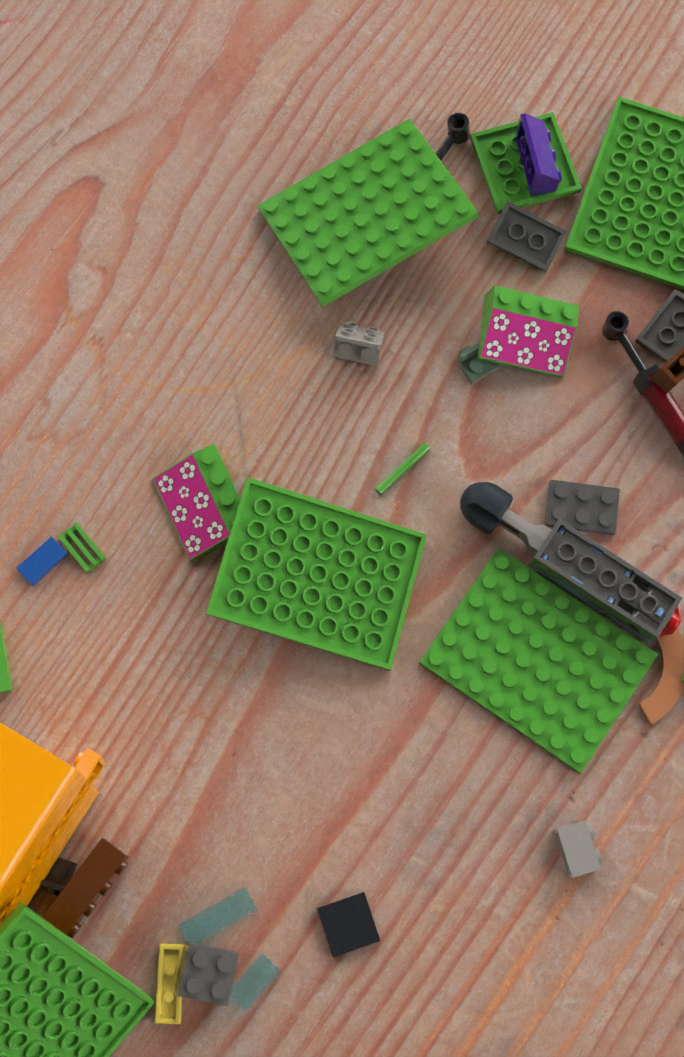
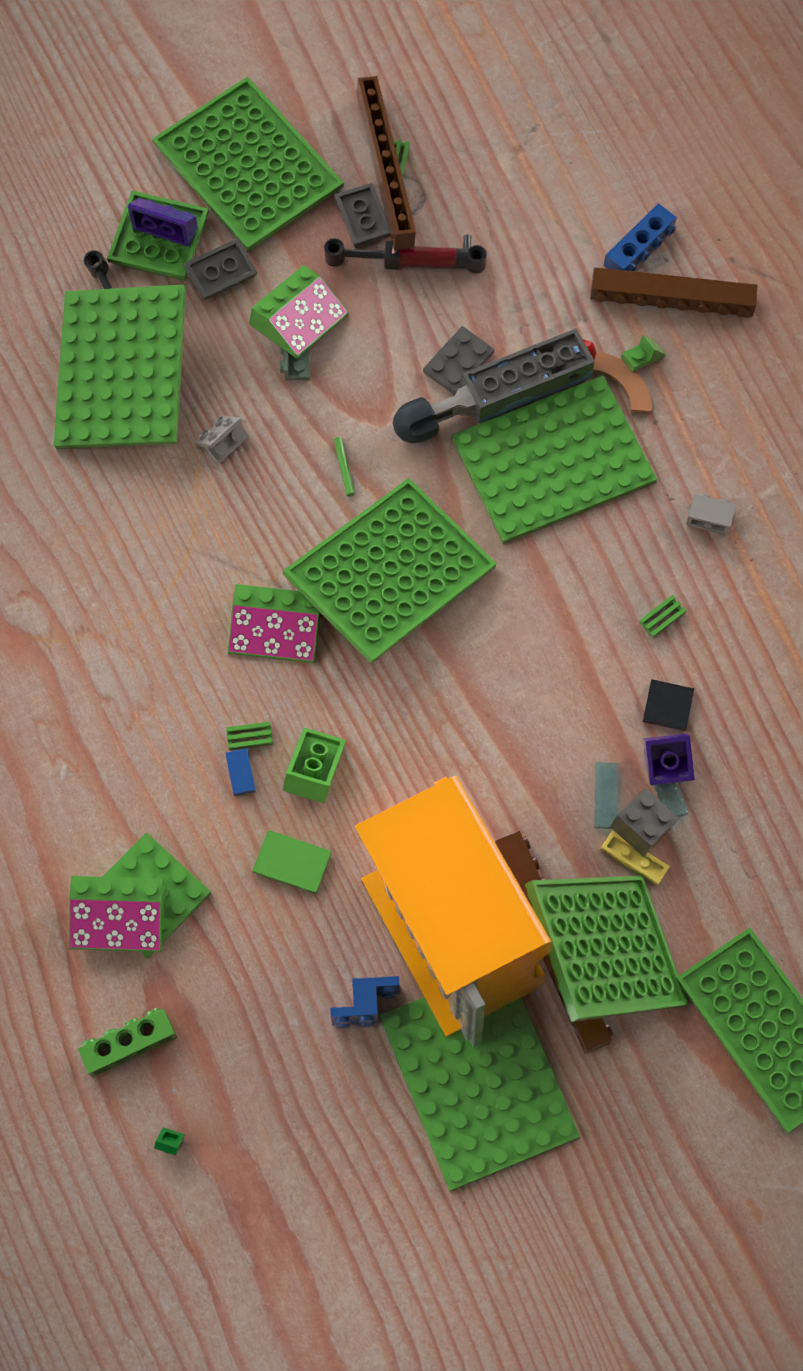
camera: 55 degrees left, 5 degrees down
(85, 622) = (313, 765): none -> bright green slope
(288, 958) = (669, 759): none -> dark purple slope
(459, 870) = (675, 605): none -> bright green tile

